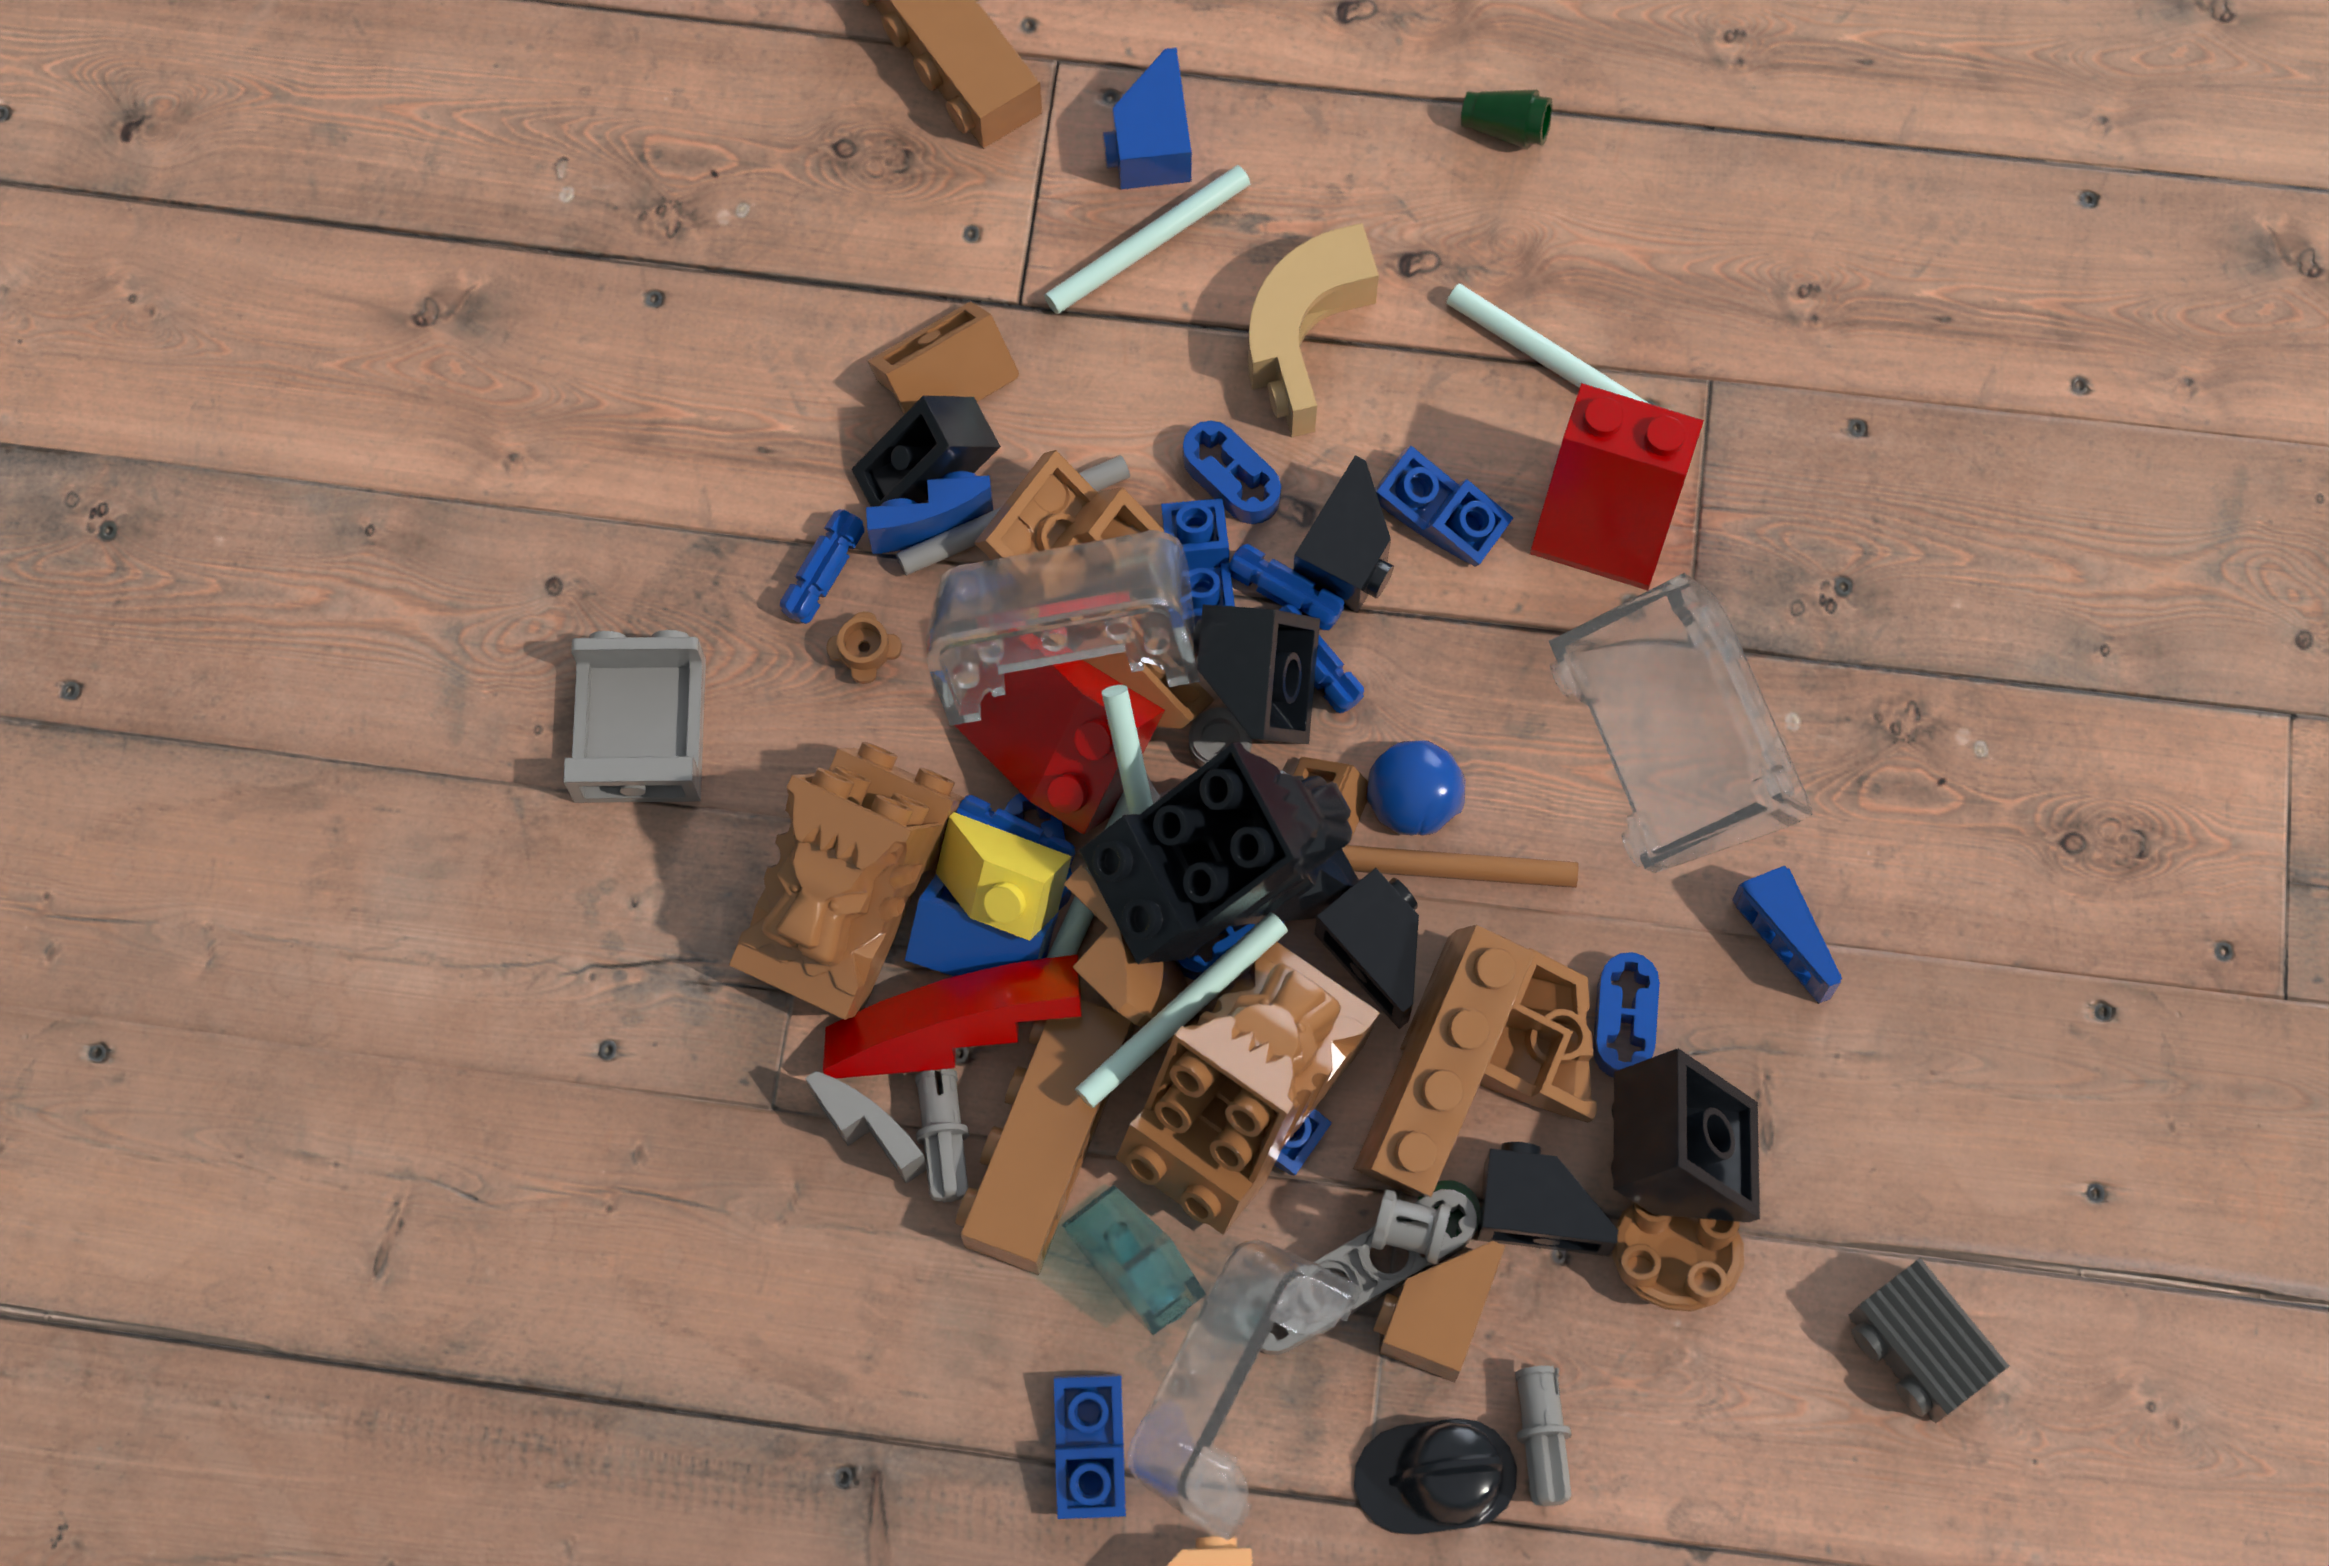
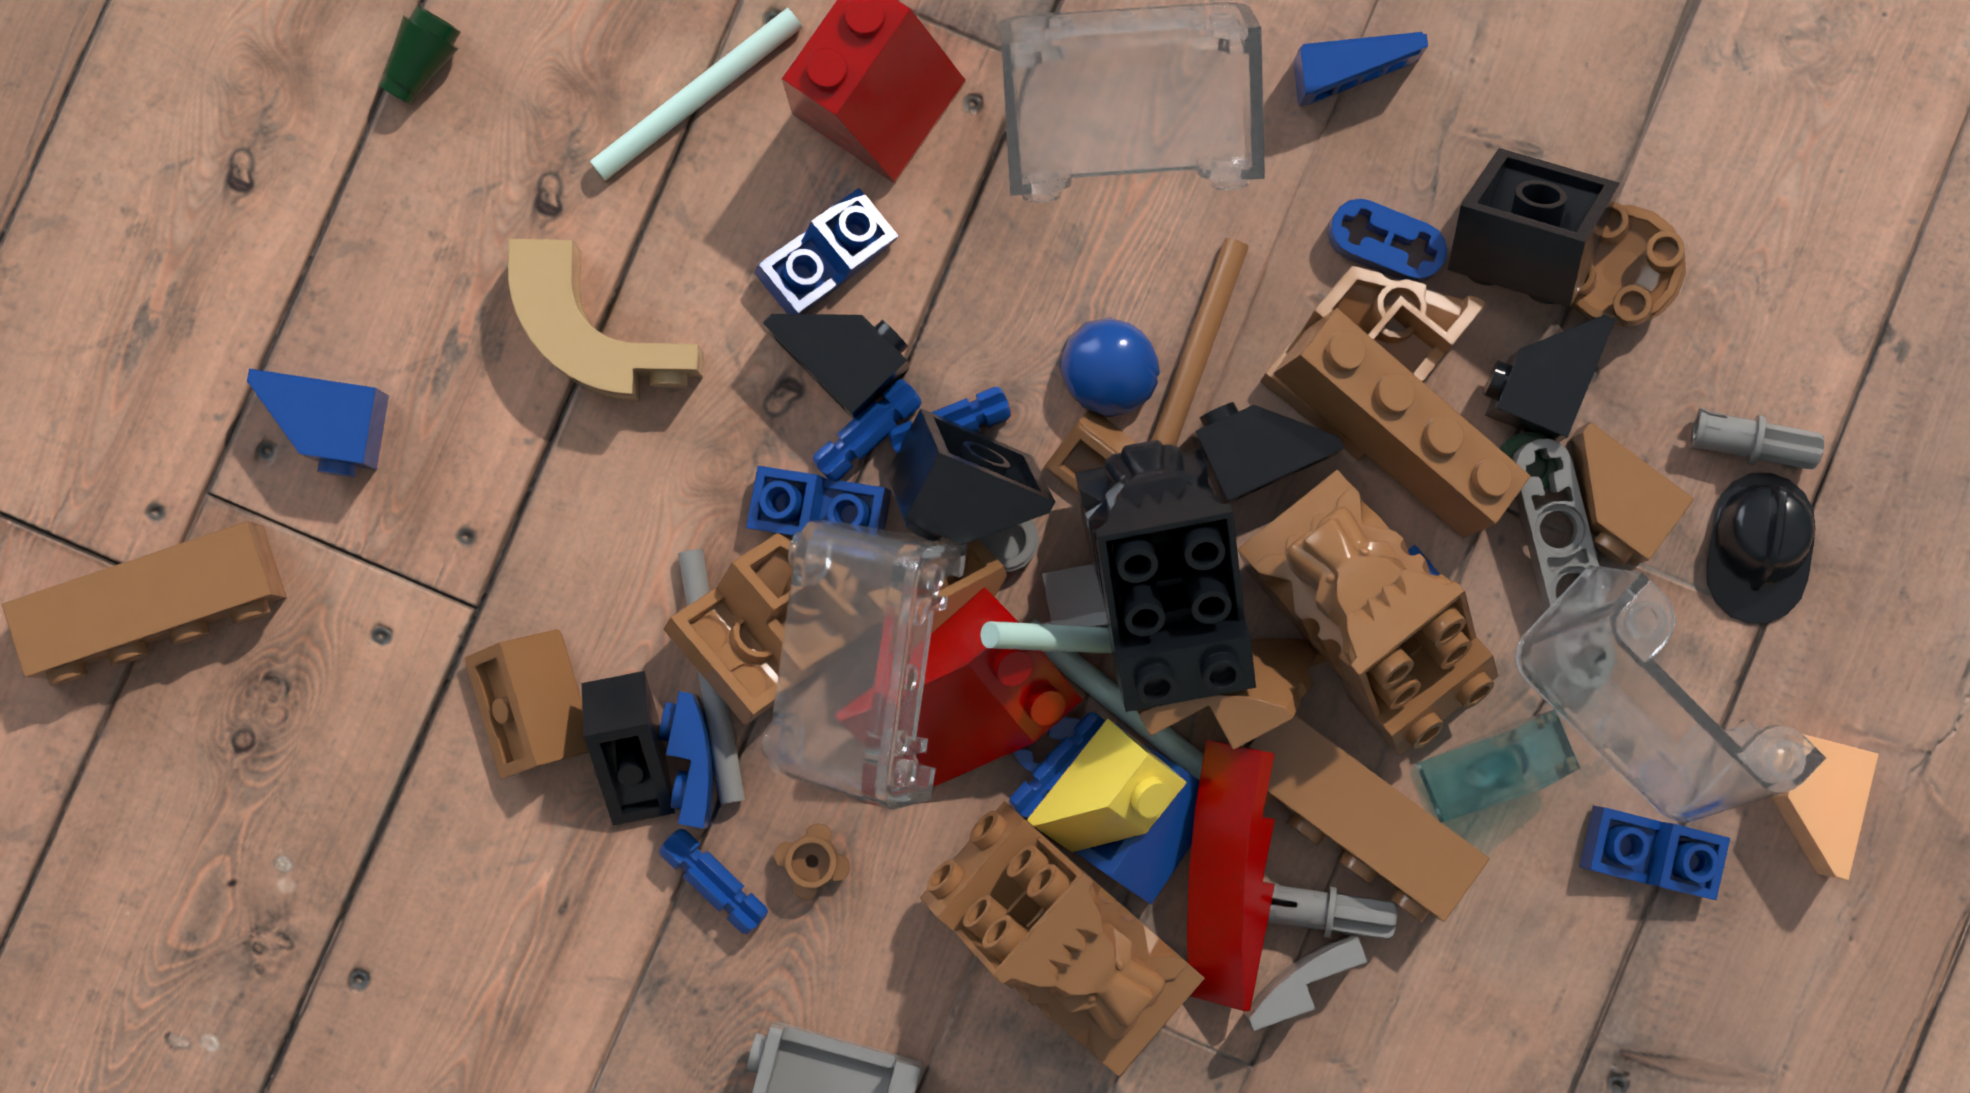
camera: 75 degrees left, 15 degrees up
(1147, 239) = (445, 458): light aqua bar -> none
(1181, 1010) = (1299, 660): light aqua bar -> none
(1240, 462) = (721, 434): blue beam -> none
(1411, 1226) = (1547, 520): light grey bush -> none
(1925, 1342) = (1766, 72): dark grey brick -> none

